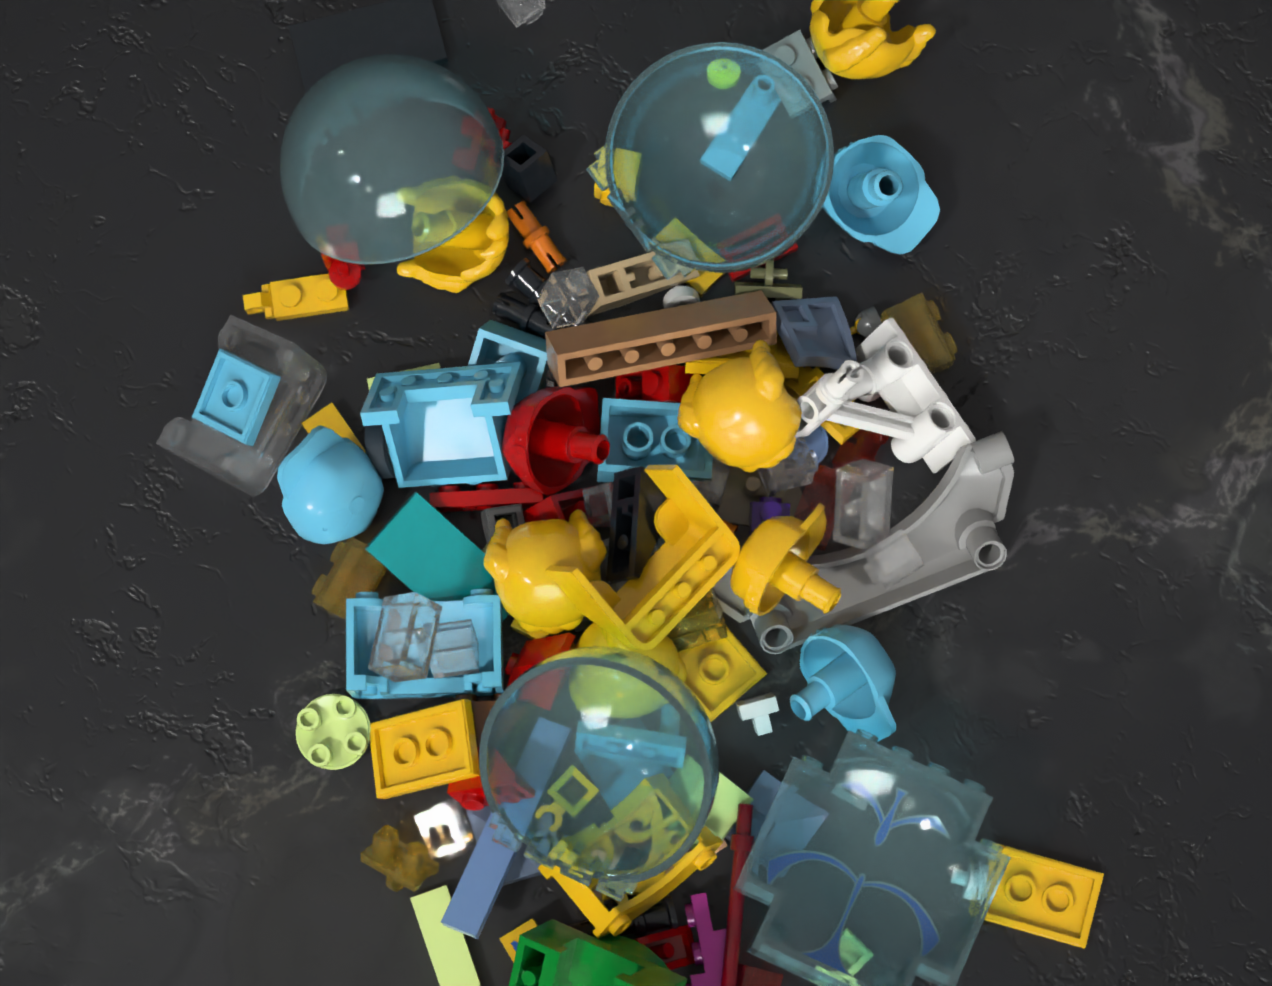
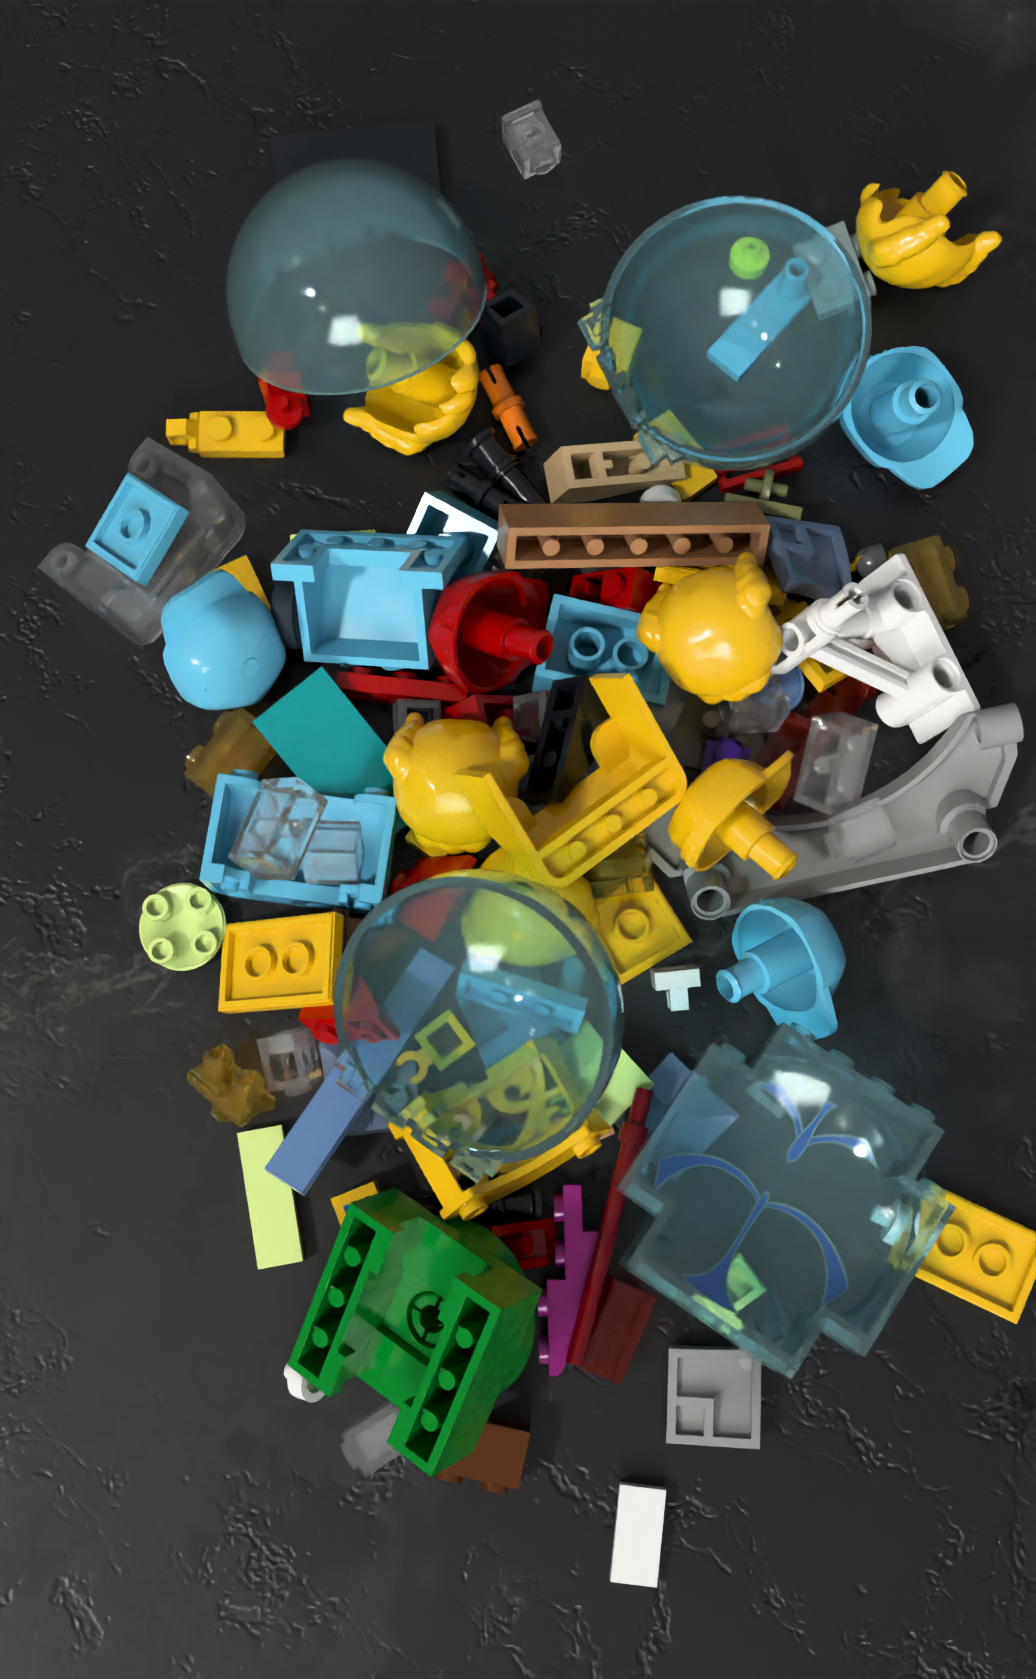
camera: 10 degrees right, 0 degrees up
(568, 297) = (532, 473): clear brick -> none

